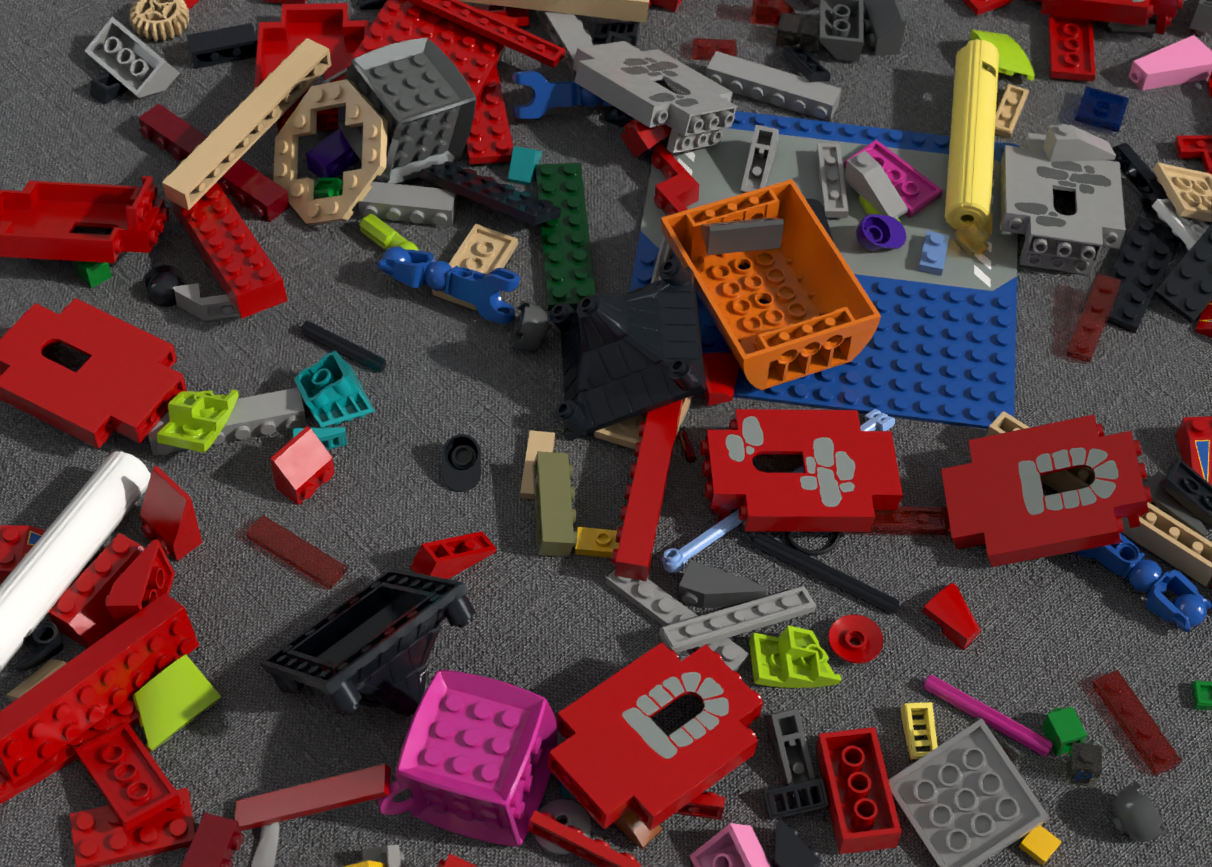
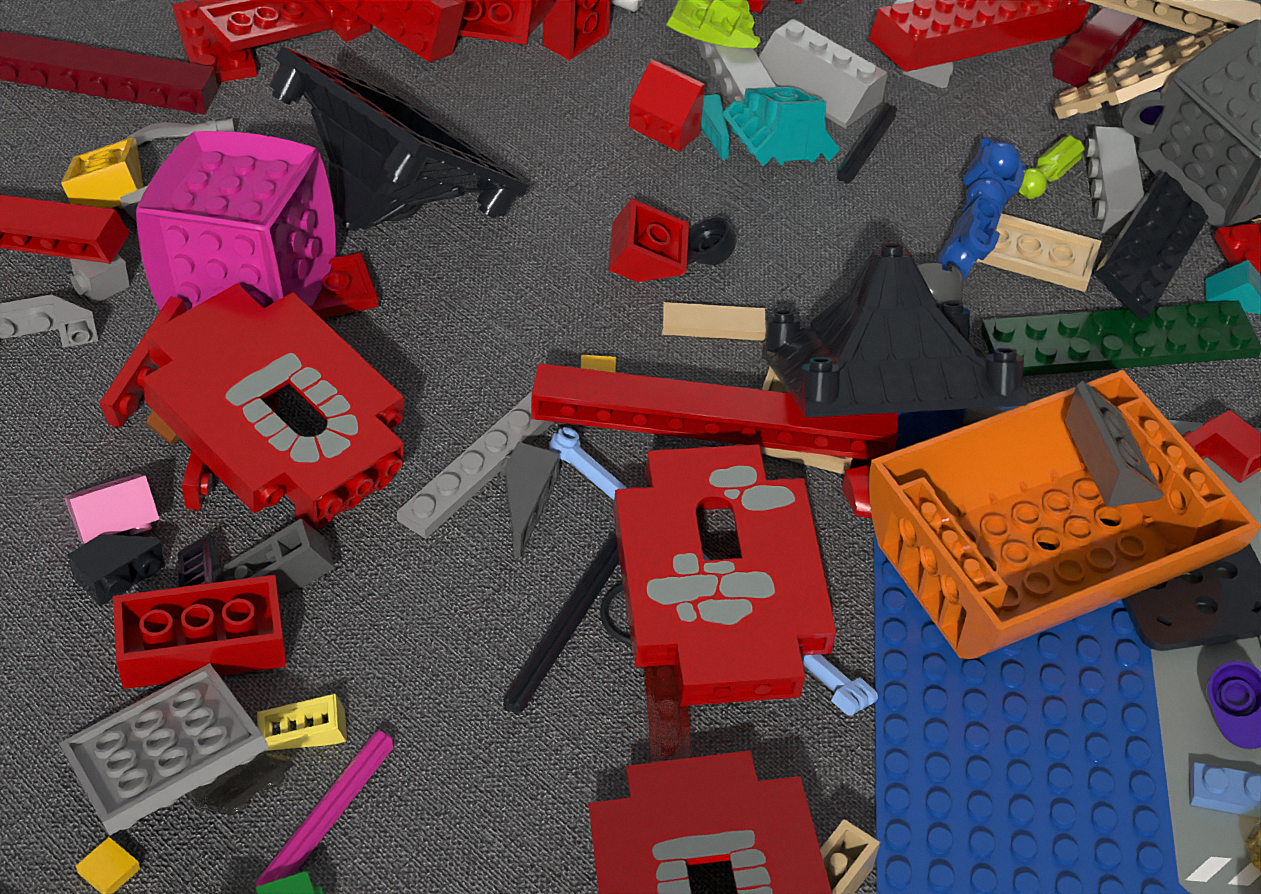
camera: 85 degrees right, 5 degrees down
(173, 701) = (355, 45): lime slope -> none
(261, 360) = (823, 69): none -> light grey slope
(296, 552) = (558, 125): clear red tile -> none
(313, 797) = (215, 117): red tile -> none
(327, 188) = (1109, 115): green bracket -> none
(452, 555) = (557, 241): red slope -> none
(462, 495) = (648, 243): none -> red slope
(554, 504) = (643, 325): olive brick -> none
(687, 447) = (778, 469): dark red pin -> none
(737, 619) = (475, 515): light grey tile -> none
(790, 660) = (417, 575): lime slope -> none
(855, 629) = (445, 635): red dish -> none
(953, 615) = (498, 777): red slope -> none

